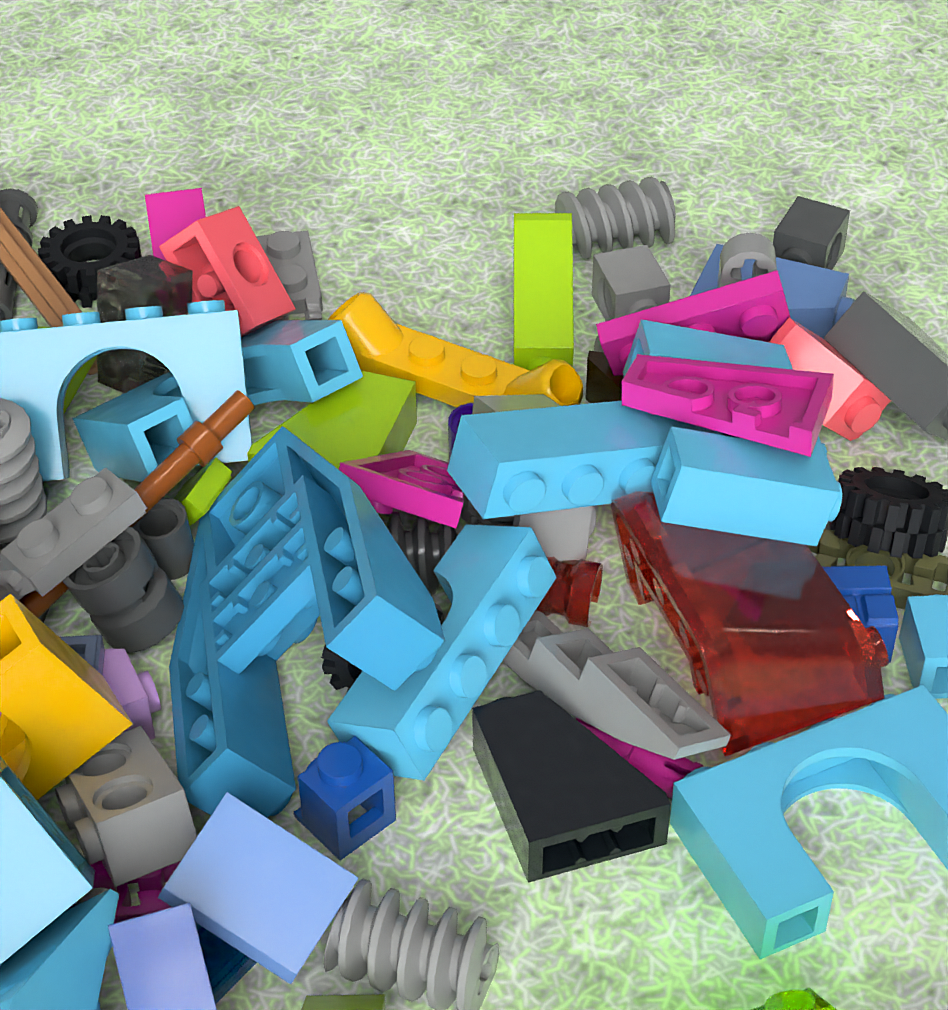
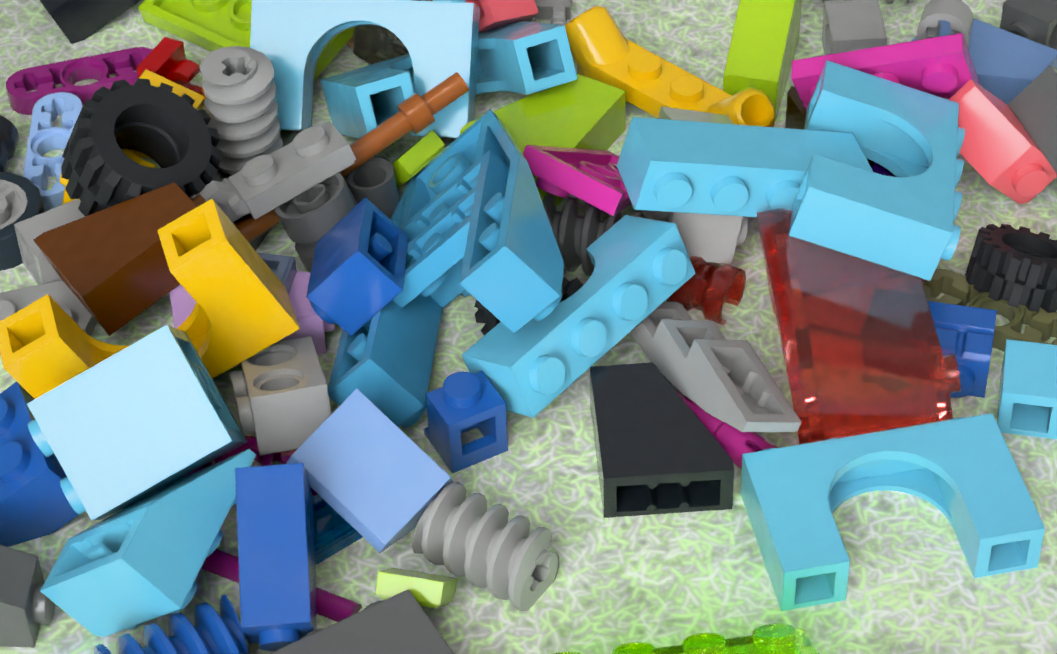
camera: 15 degrees right, 0 degrees up
(179, 636) = (357, 267): none -> blue brick
(736, 399) = (881, 139): dark pink wing -> none

